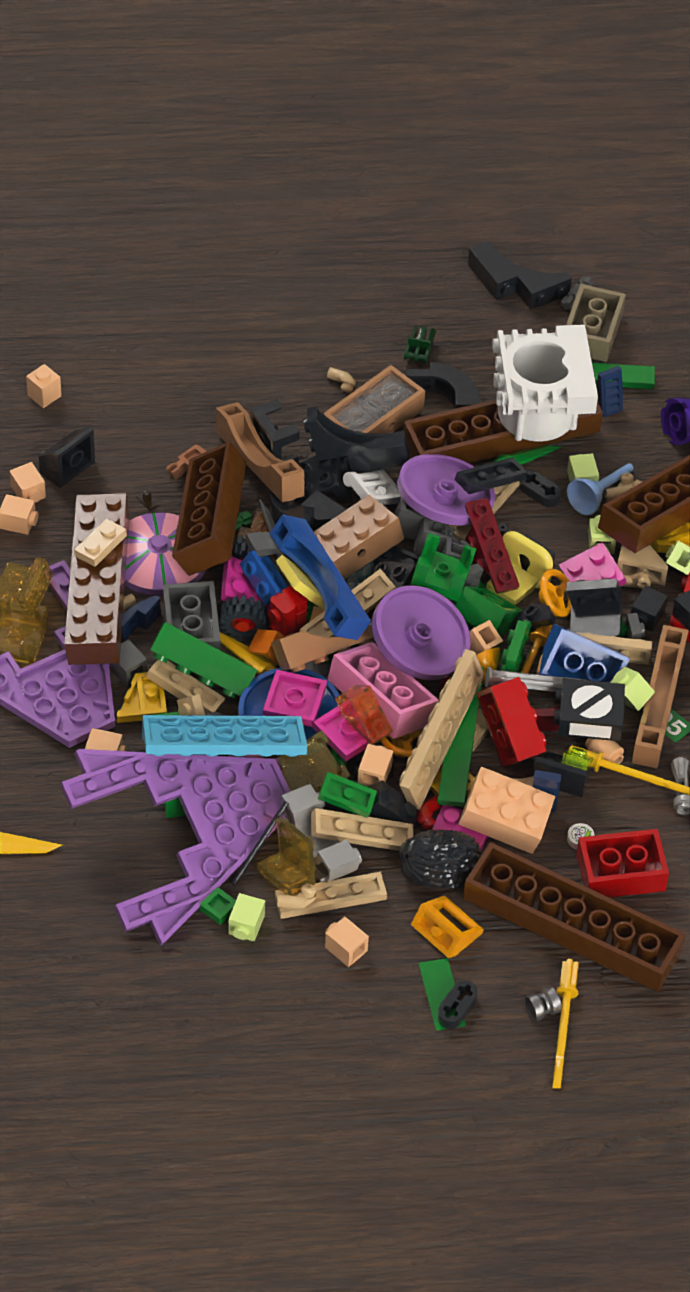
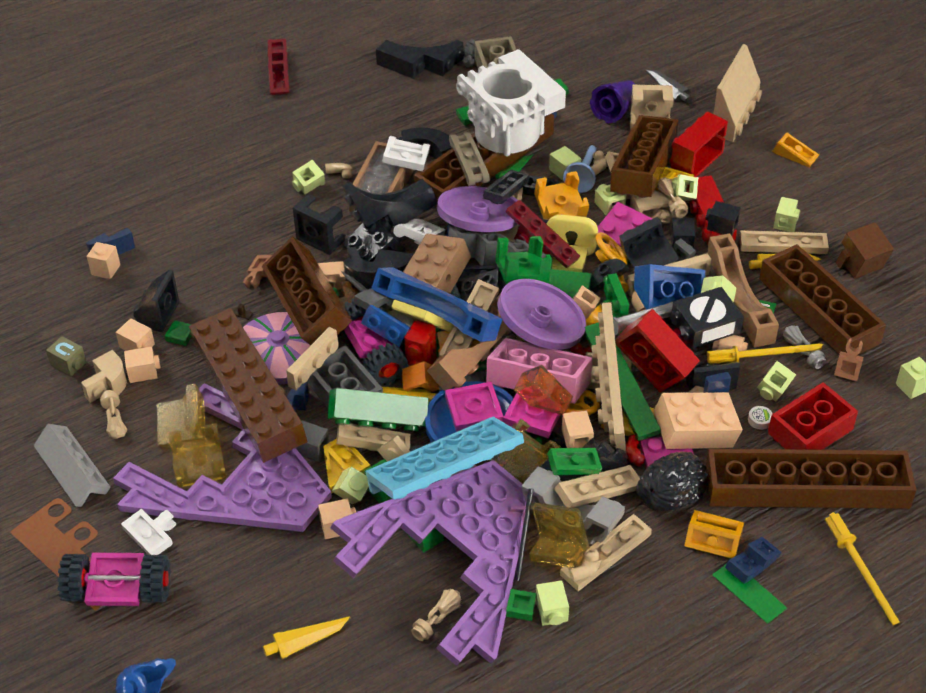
camera: 25 degrees left, 5 degrees down
(69, 372) = (122, 240): none -> dark blue slope
(69, 494) = (178, 333): none -> green tile
(100, 542) = (236, 351): tan plate -> none
(132, 723) = (351, 485): none -> yellowish green brick
(154, 873) = (448, 602): none -> tan piece
(169, 581) = (312, 358): none -> tan plate
(250, 497) = (333, 273): none -> light nougat brick
(280, 476) = (354, 246): medium nougat arch -> none
(298, 370) = (311, 174): none -> yellowish green brick
(346, 941) = (646, 583): light nougat brick -> none
(356, 226) = (278, 66): none -> dark red slope
(406, 397) = (406, 154): none -> white plate
(419, 348) = (382, 126): dark green arm -> none
(453, 1001) = (776, 593): black beam -> none
(471, 427) = (469, 158): none -> dark tan plate
(472, 966) = (754, 560): none -> dark blue slope
(542, 1004) = (836, 559): flat silver wheel -> none
(546, 515) = (561, 198): none -> light orange panel
(577, 758) = (723, 356): clear neon green plate -> none
(626, 802) = (775, 382): none -> yellowish green brick
(657, 575) = (678, 208): none -> tan piece

